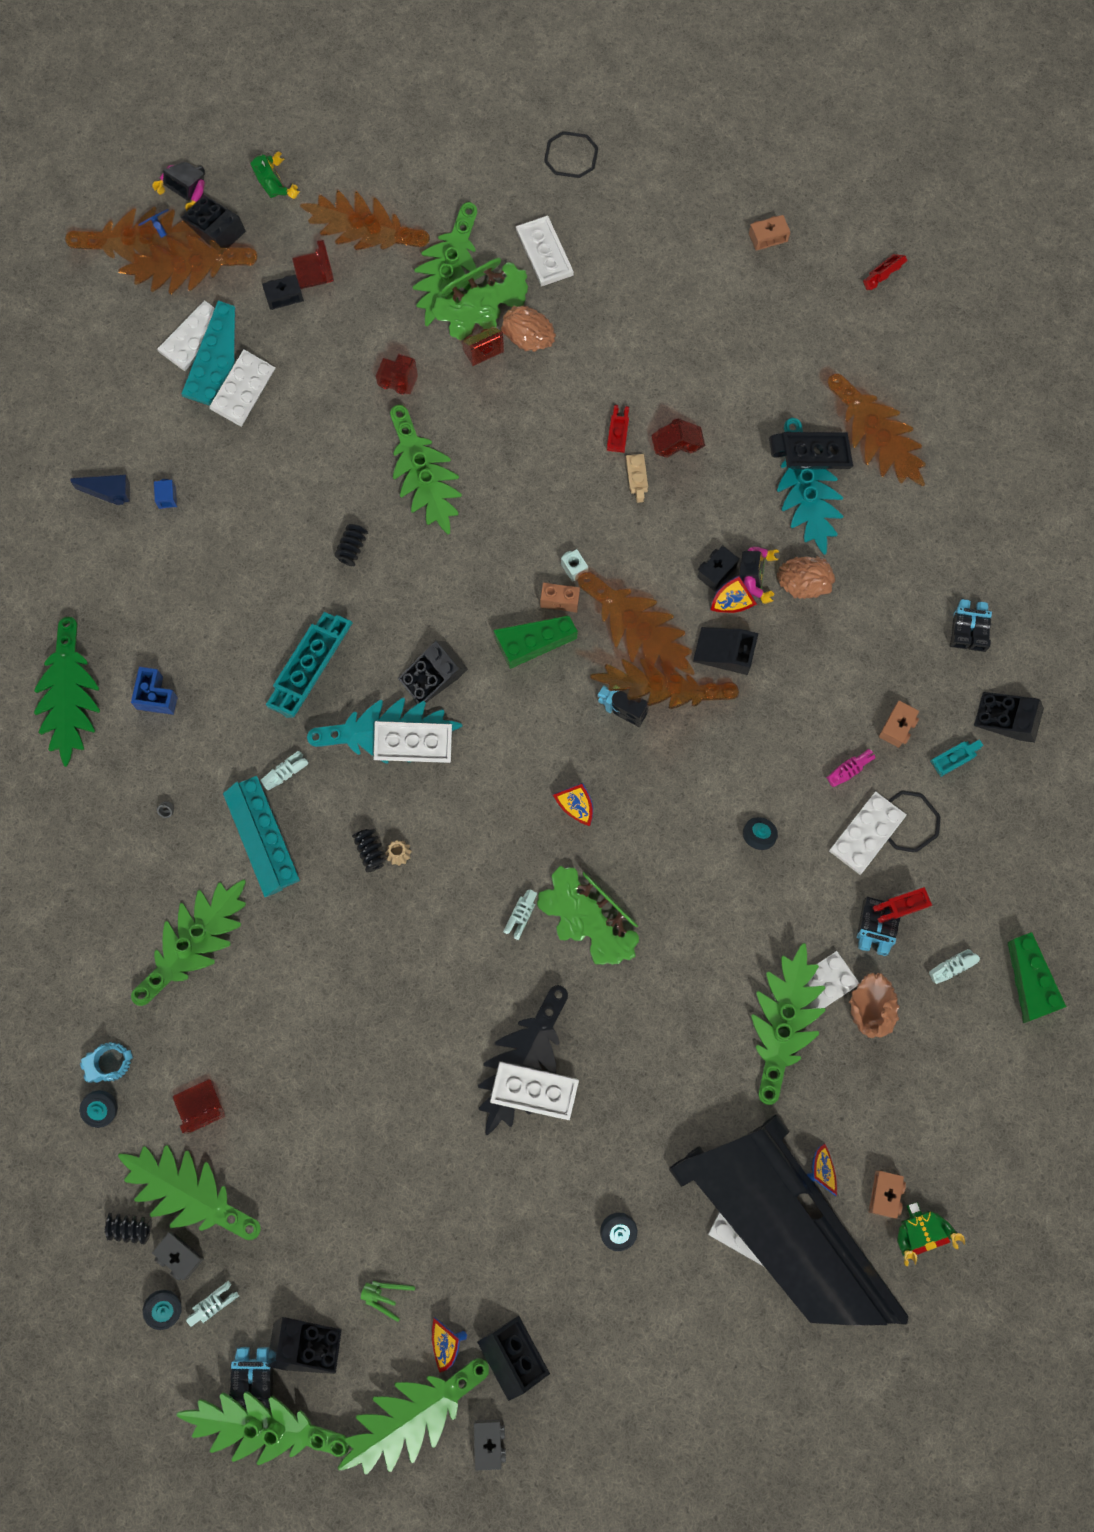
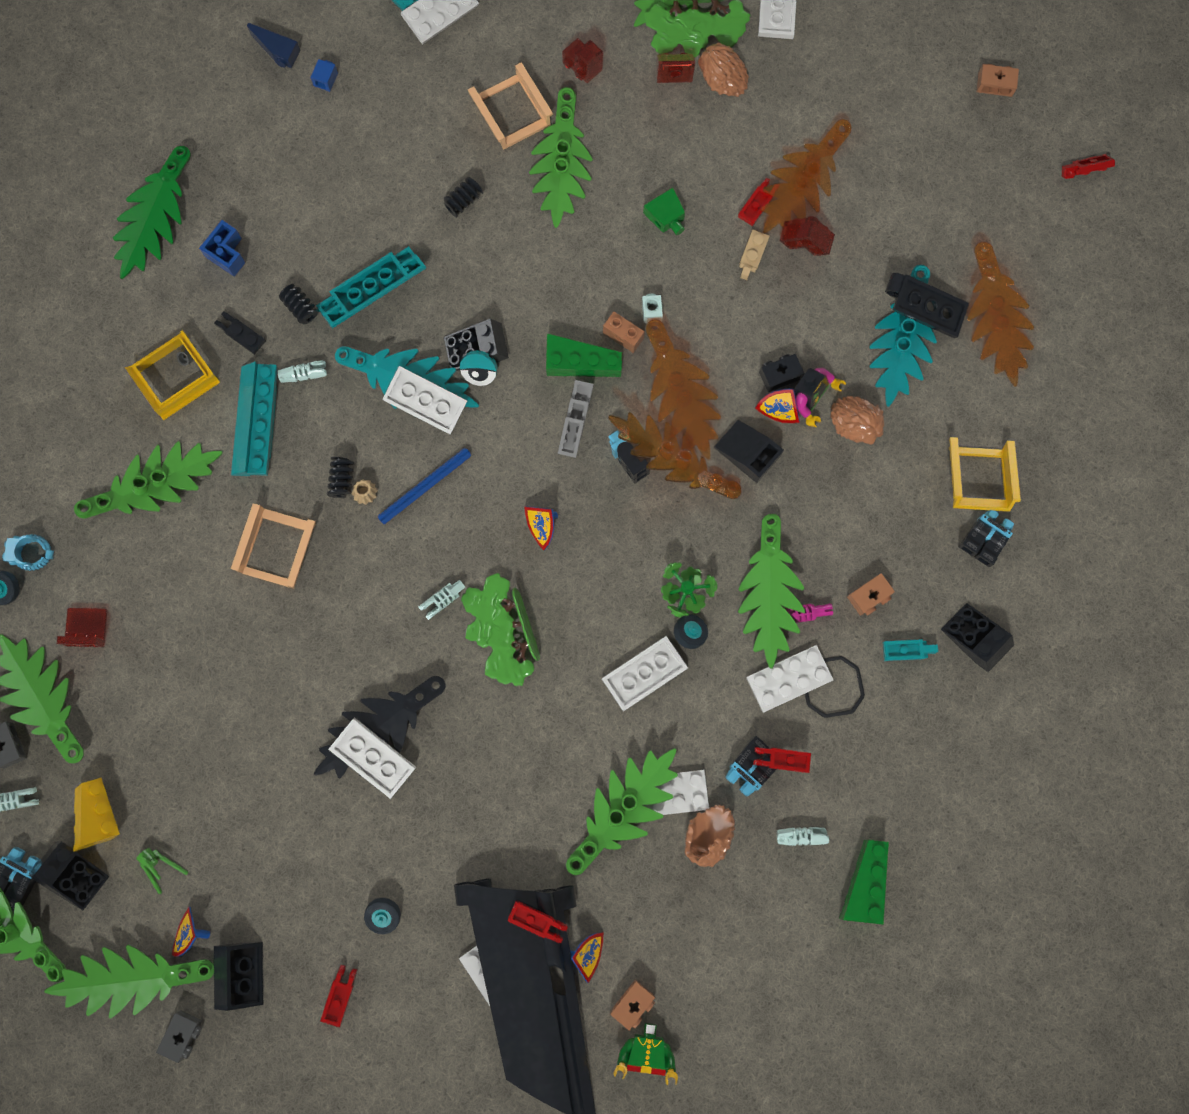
camera: 25 degrees right, 5 degrees up
(183, 847) = (185, 395): none -> yellow piece
(207, 763) = (241, 333): none -> black hinge
(249, 712) = (298, 304): none -> black piece
(299, 1277) = (93, 815): none -> yellow wedge
(310, 920) = (249, 537): none -> light nougat piece
(369, 426) = (533, 94): none -> light nougat piece
(446, 690) = (478, 368): none -> tile
(450, 820) = (424, 485): none -> blue axle
(542, 475) = (666, 212): none -> green torso
(557, 694) = (575, 418): none -> light grey slope
(618, 1330) = (338, 998): none -> red hinge
(647, 391) = (802, 179): none -> clear orange plant
(734, 787) = (689, 583): none -> bright green plant
(738, 891) = (644, 673): none -> white plate
(764, 1160) = (535, 921): none -> red hinge
(812, 765) = (771, 594): none -> bright green plant
(960, 561) = (1009, 474): none -> yellow piece

